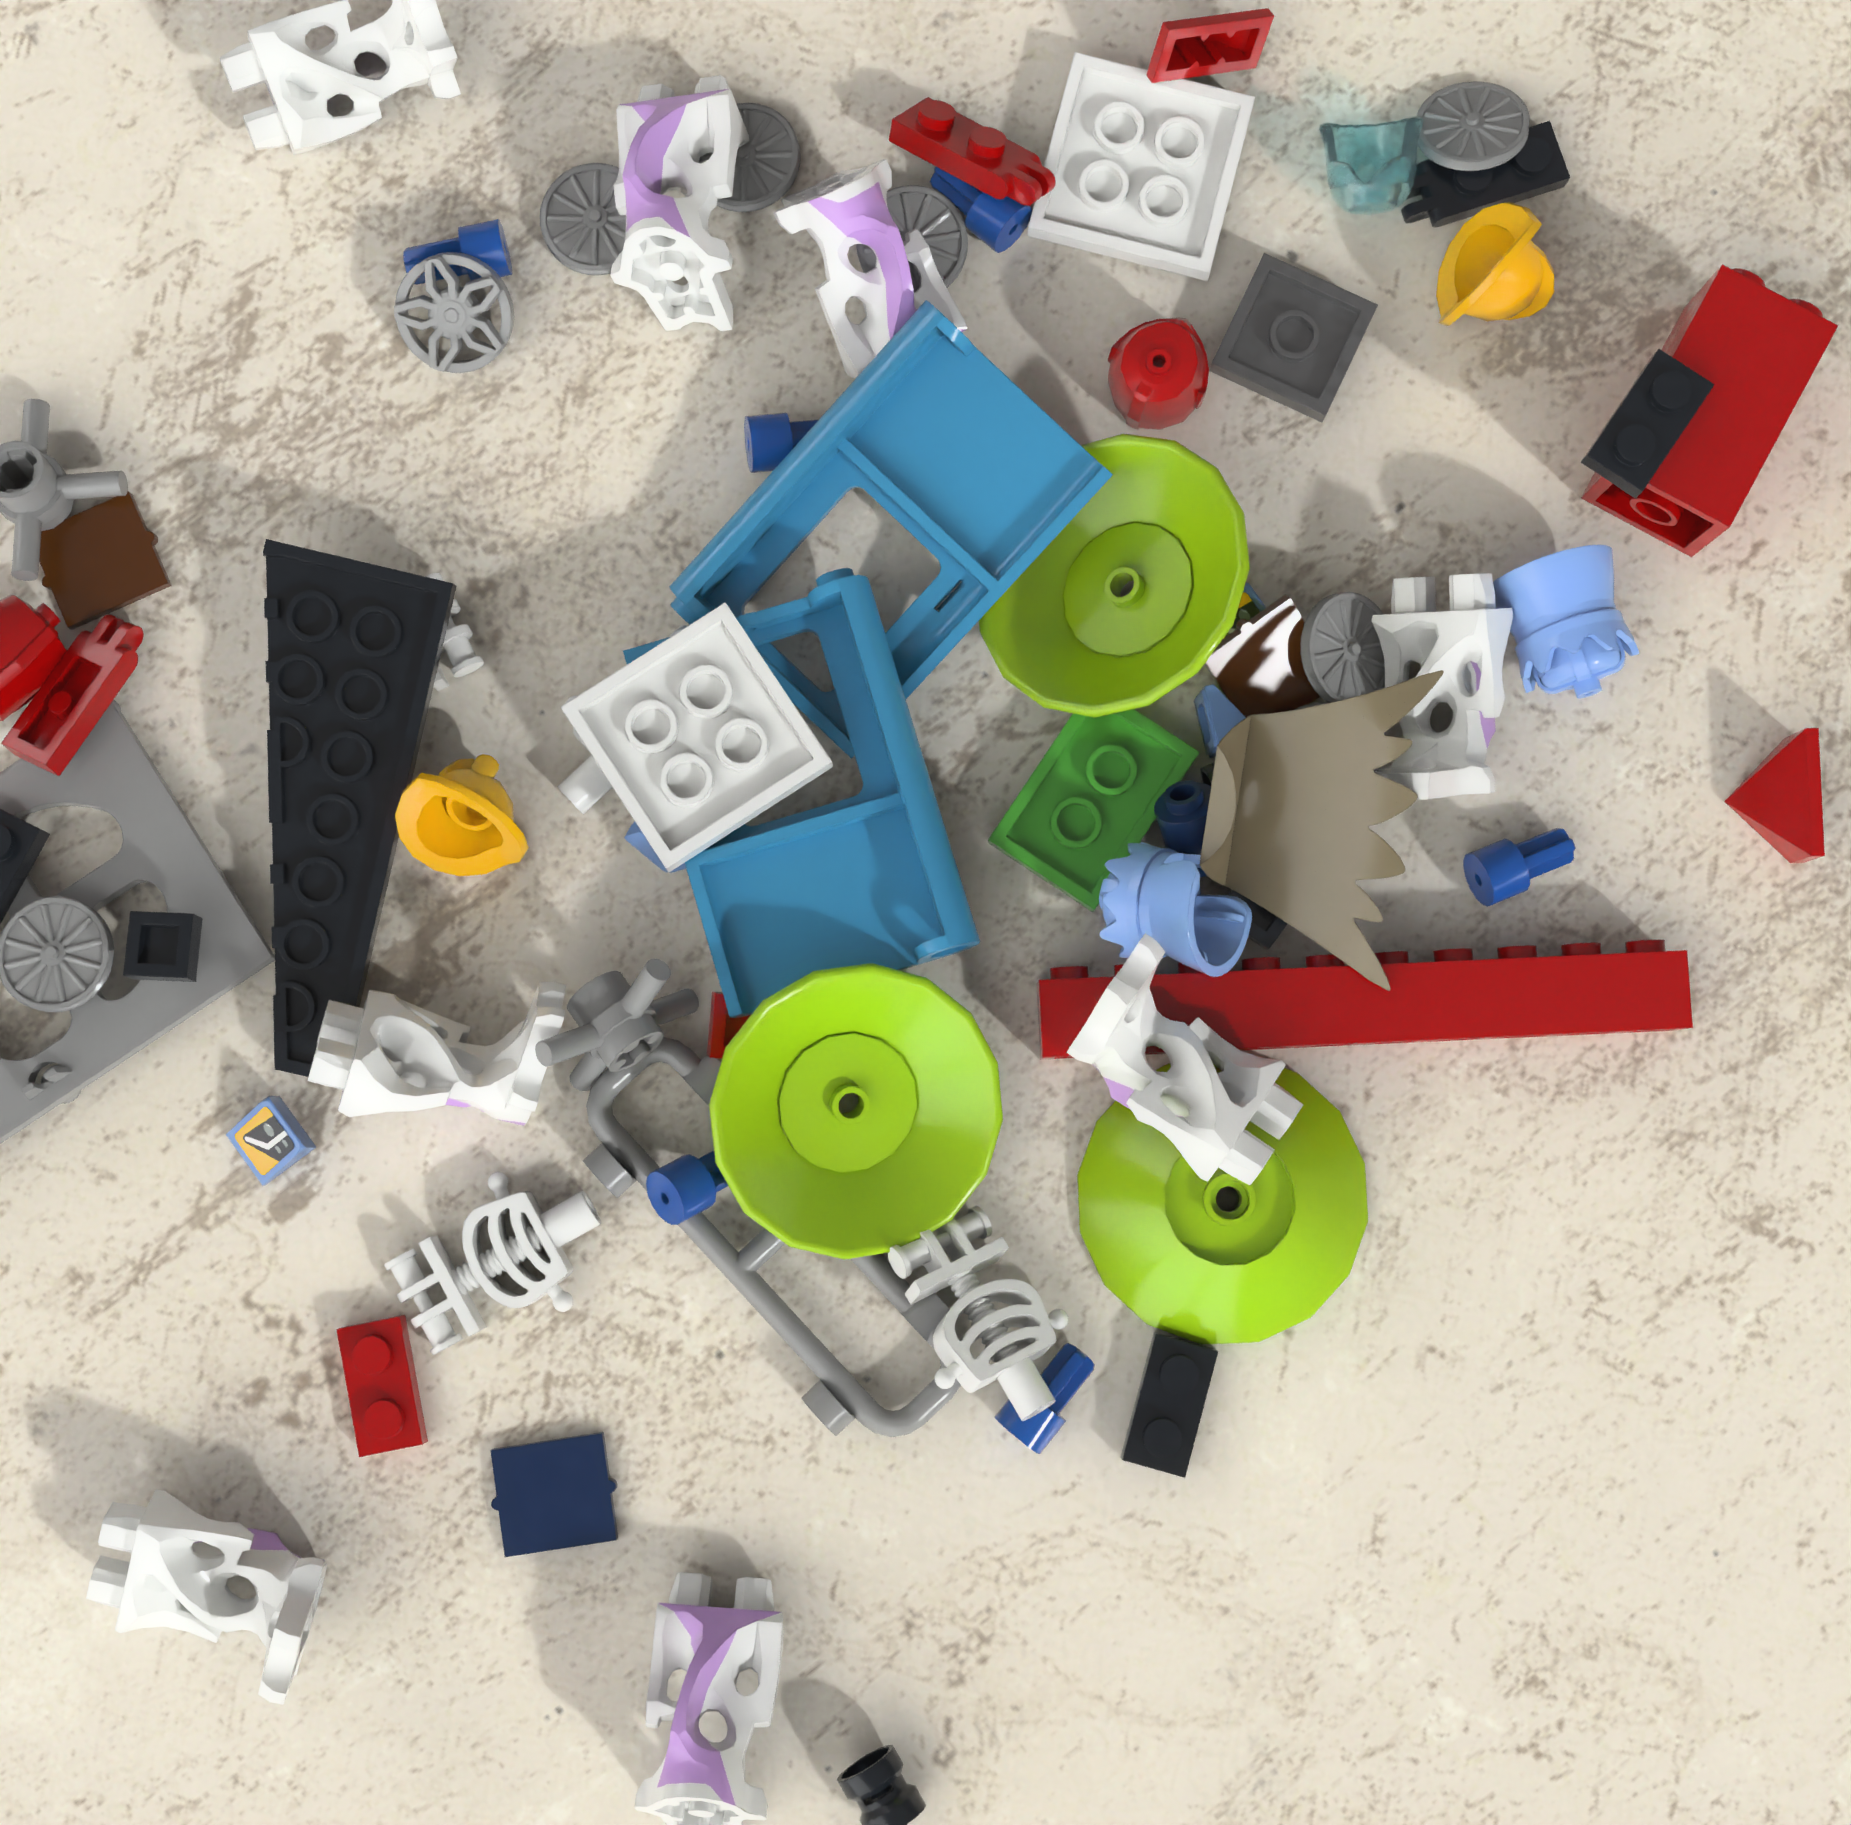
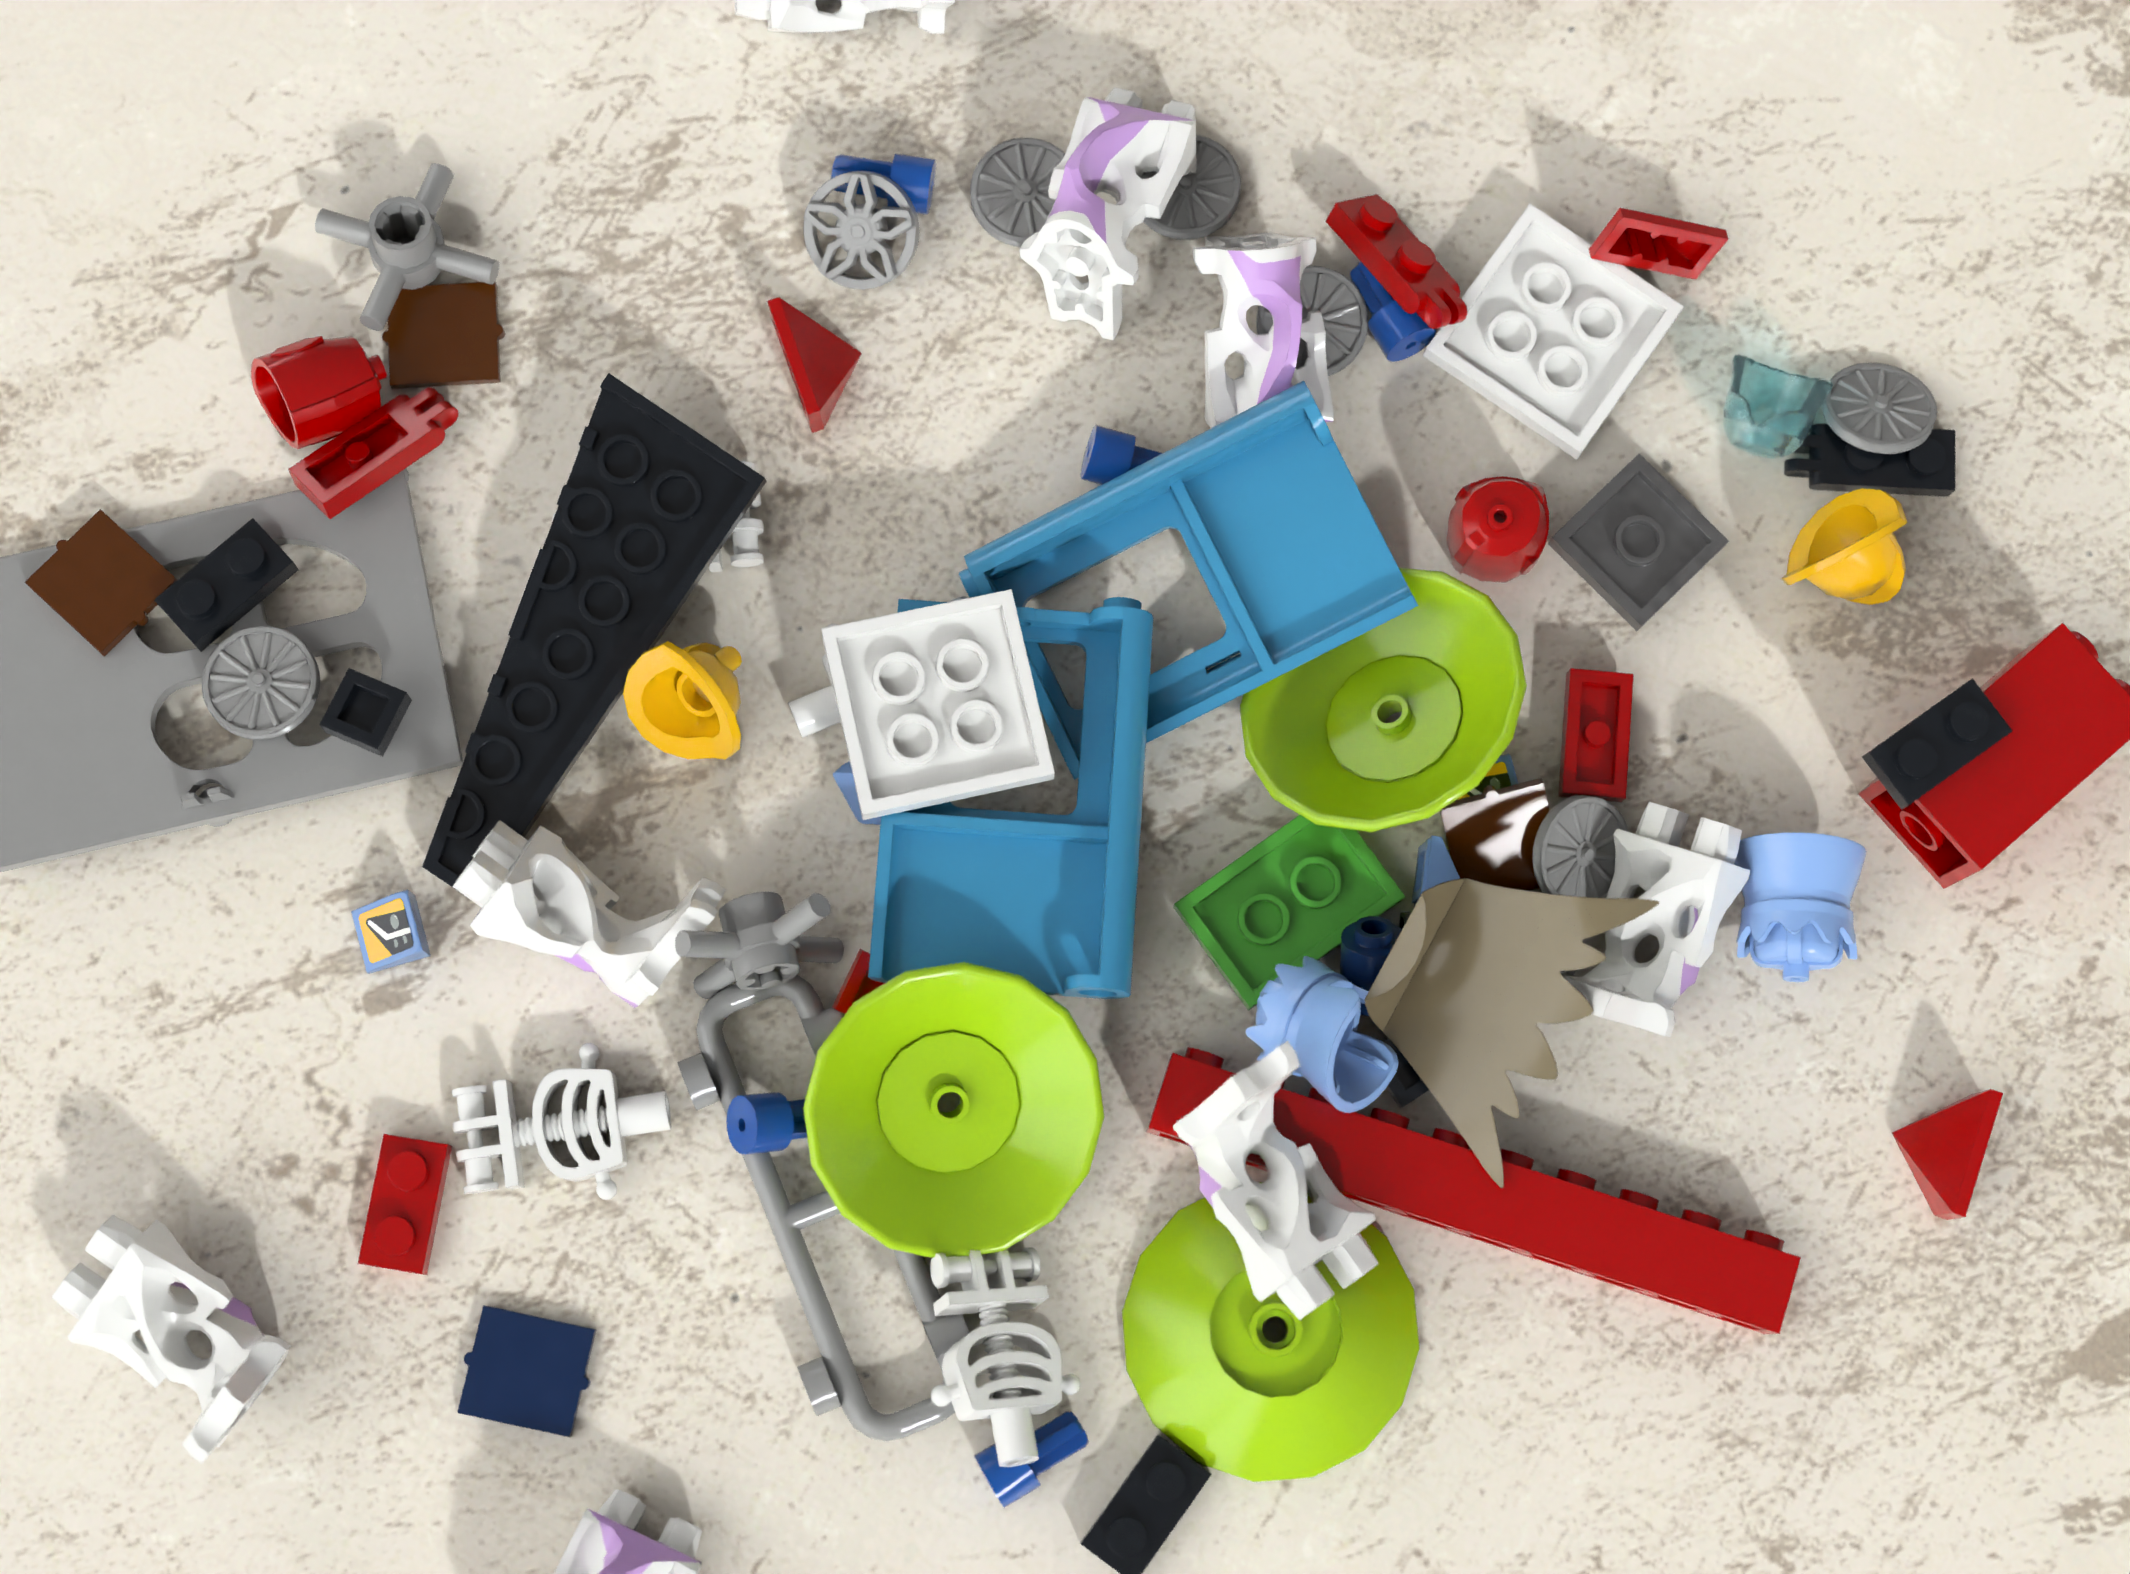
camera: 10 degrees right, 5 degrees down
(460, 452) = (816, 360): none -> red slope
(1320, 534) = (1596, 734): none -> red plate
(1506, 867) = (1657, 1116): blue piece -> none

